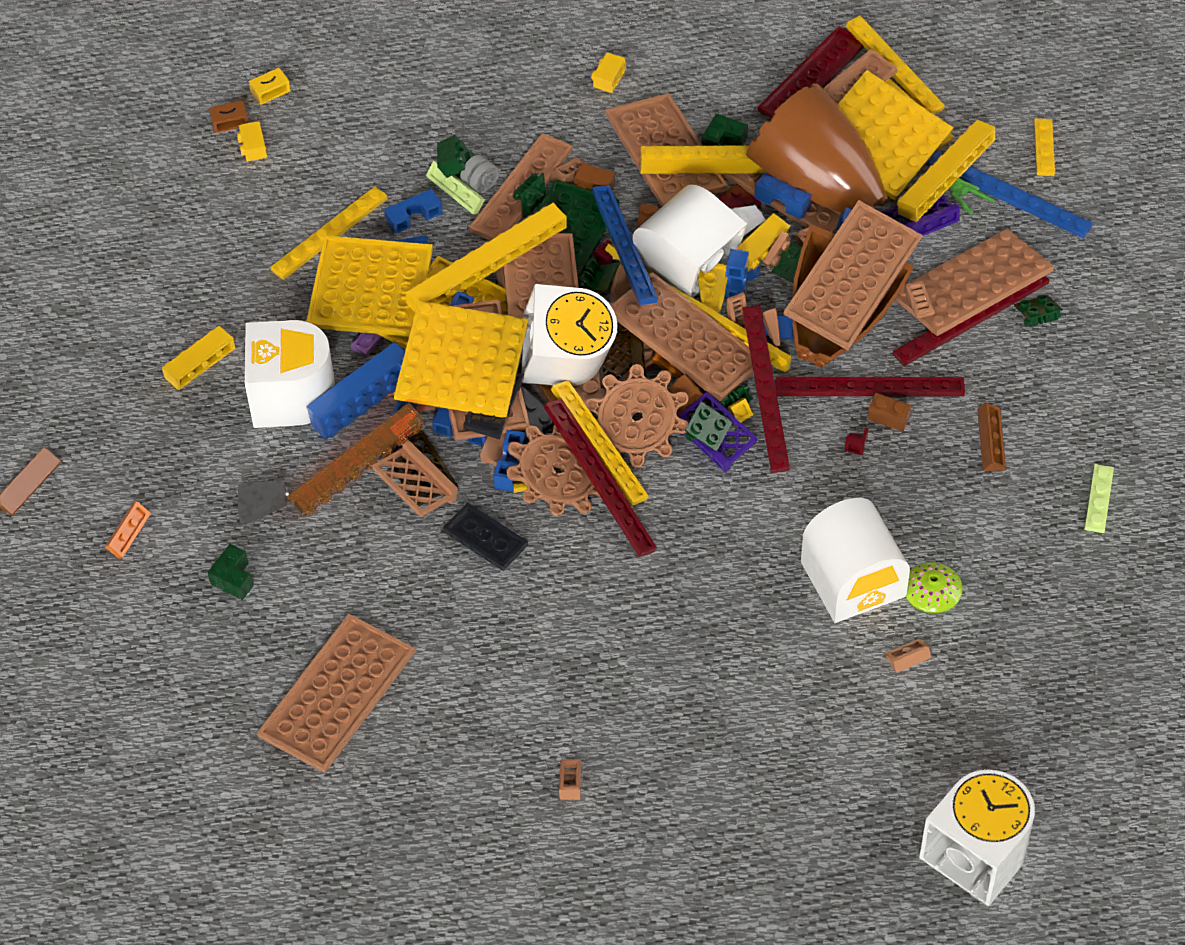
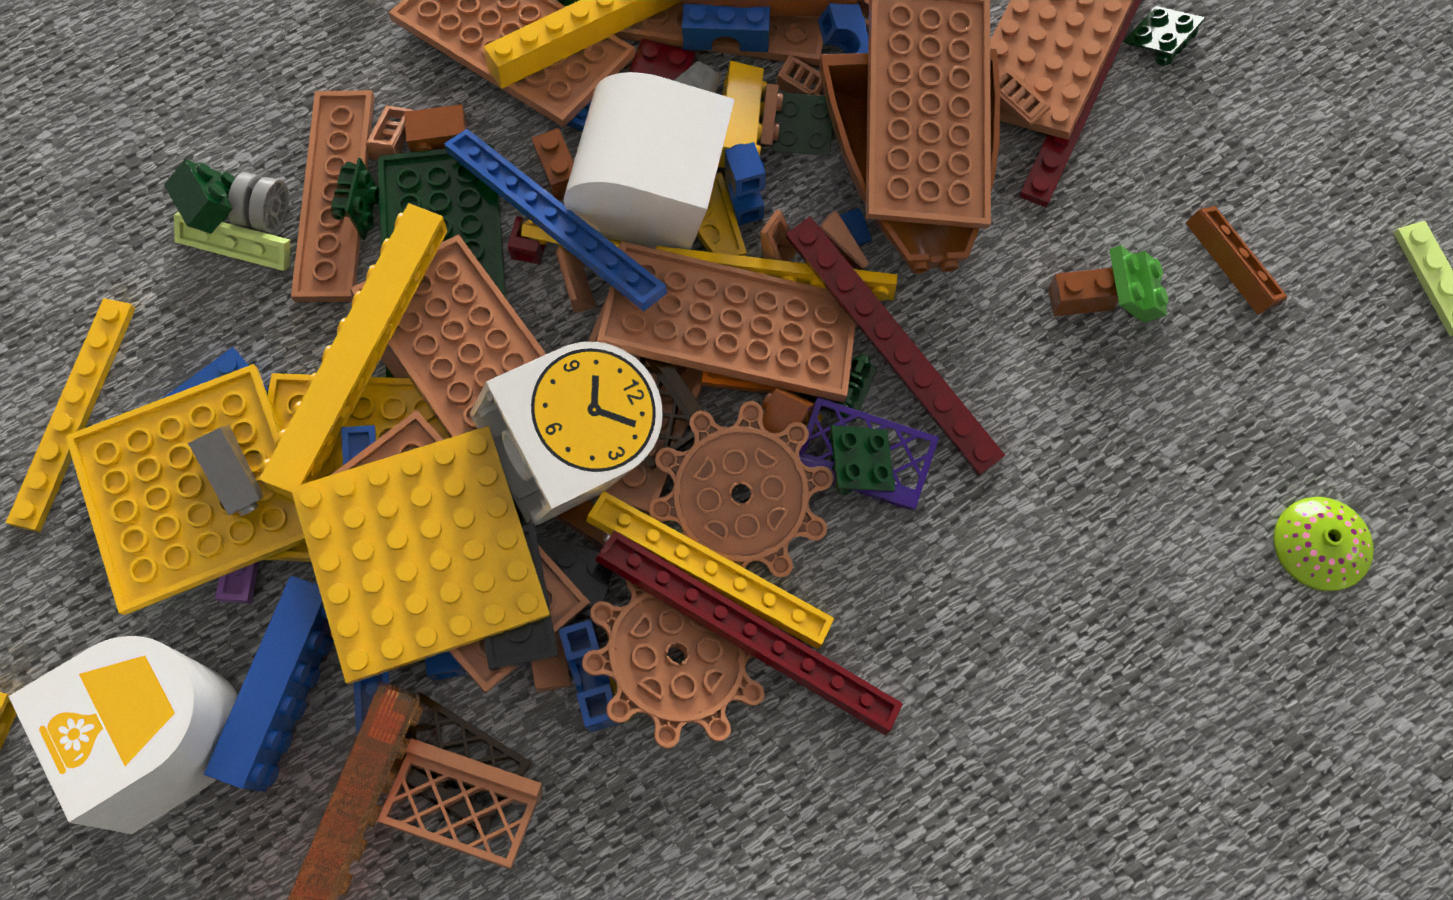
camera: 30 degrees left, 15 degrees up
(392, 282) = (227, 470): none -> flat silver slope
(399, 215) = (197, 291): blue arch -> none
(485, 536) = (628, 834): black plate -> none
(596, 276) = (536, 284): dark green hinge -> none
(740, 410) = (876, 398): yellow plate -> none
(853, 559) = (1229, 581): white brick -> none
(856, 443) = (1069, 361): dark red panel -> none
(870, 386) = (1027, 263): dark red plate -> none
(908, 655) = (1368, 678): nougat slope -> none
(919, 419) = (1139, 284): none -> bright green plate

